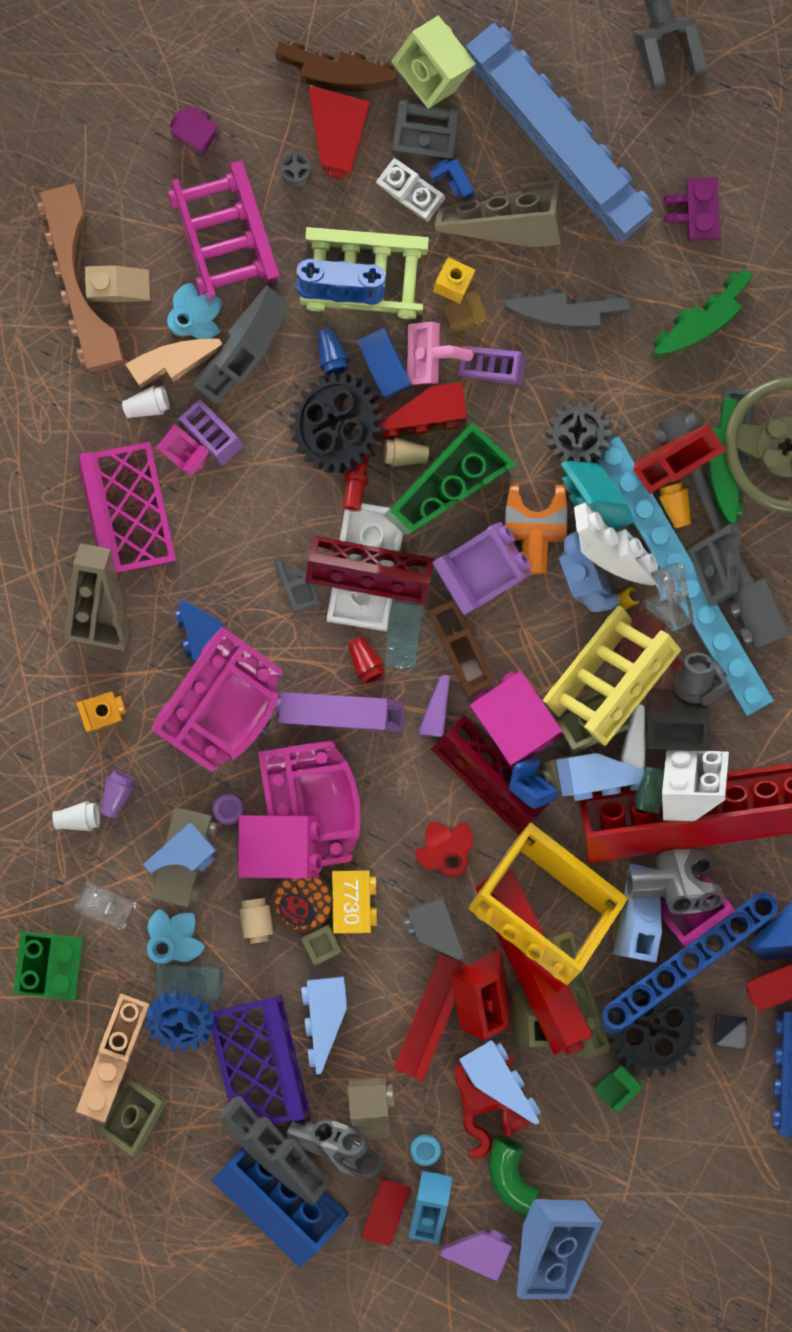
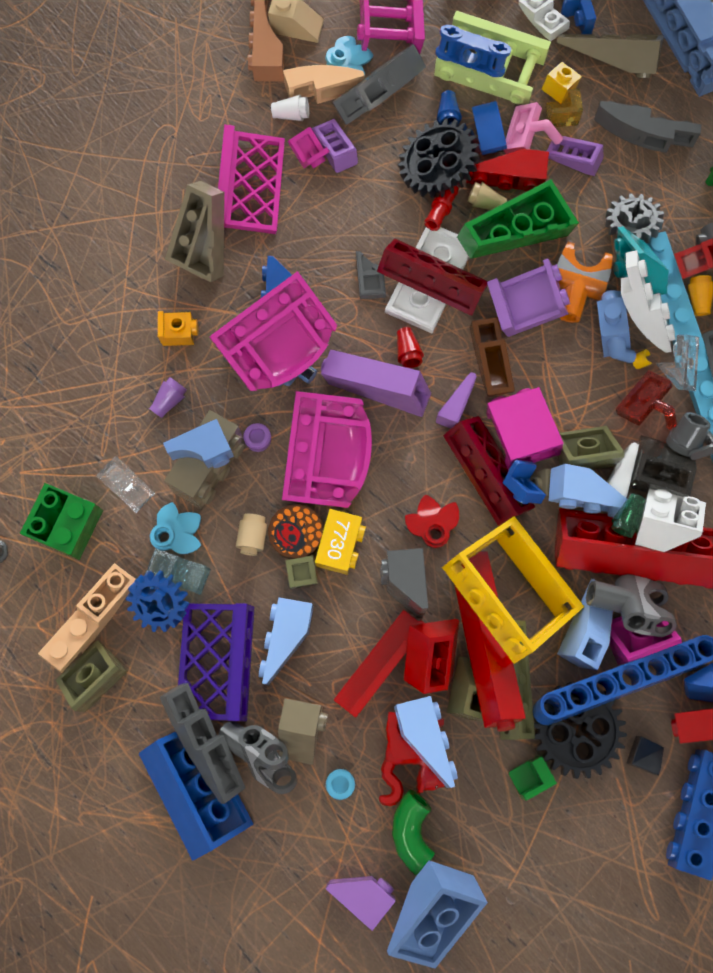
camera: 15 degrees right, 10 degrees down
(78, 817) = (131, 407): white cone -> none
(279, 846) = (290, 474): dark pink panel -> none
(385, 1212) = (287, 831): red slope -> none
(403, 635) = (445, 337): clear light blue slope -> none
(430, 1207) = (329, 839): dark azure slope -> none
(629, 691) = (629, 425): light yellow fence -> none

